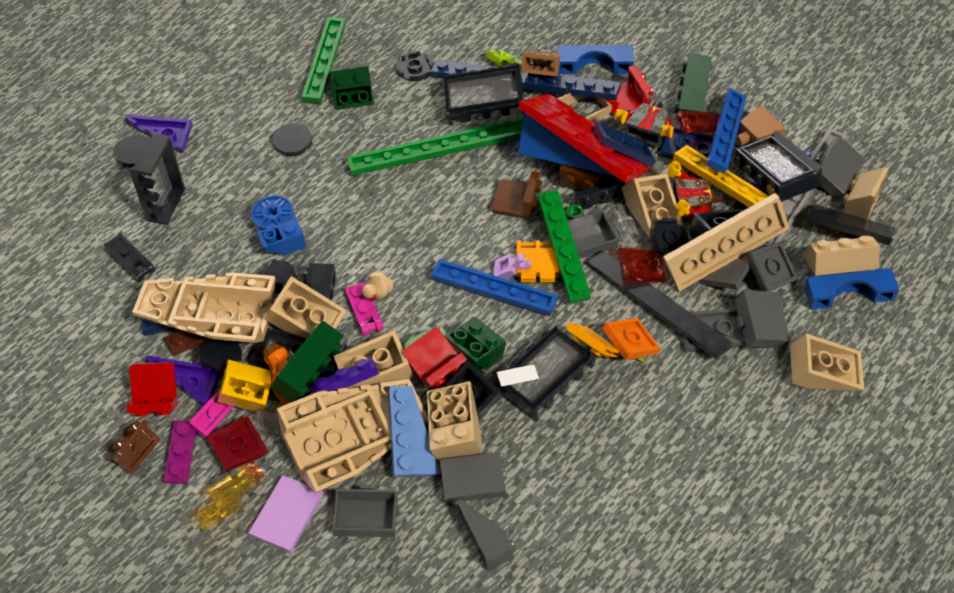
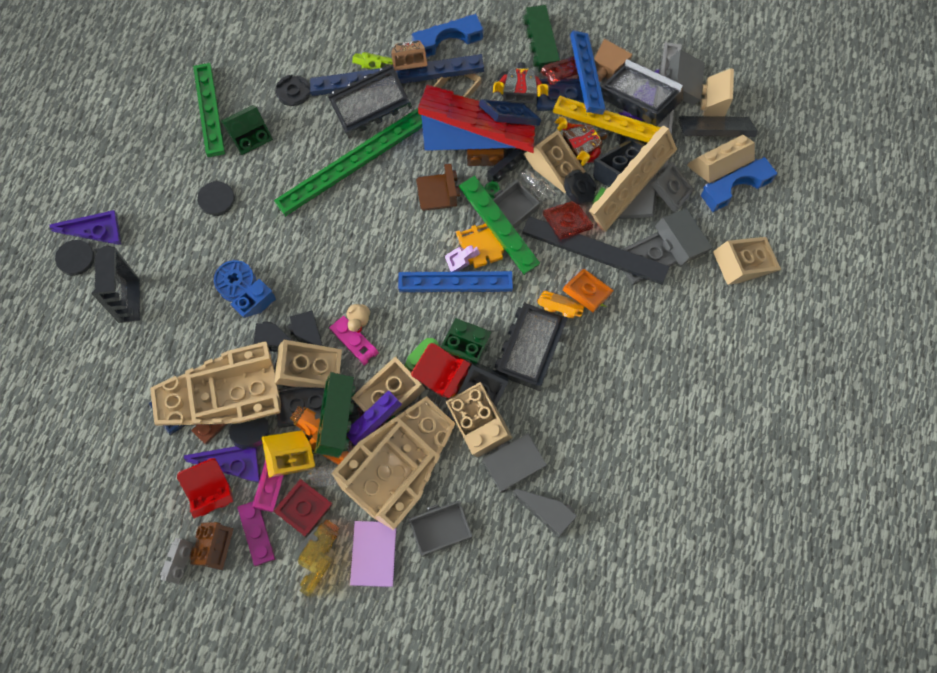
camera: 25 degrees left, 15 degrees up
(93, 450) = (179, 552): none -> light grey hinge
(129, 257) = (120, 365): black plate -> none
(409, 436) = (447, 447): medium blue wing -> none
(517, 375) = (513, 359): white sticker -> none
(632, 92) = (495, 59): red bracket -> none

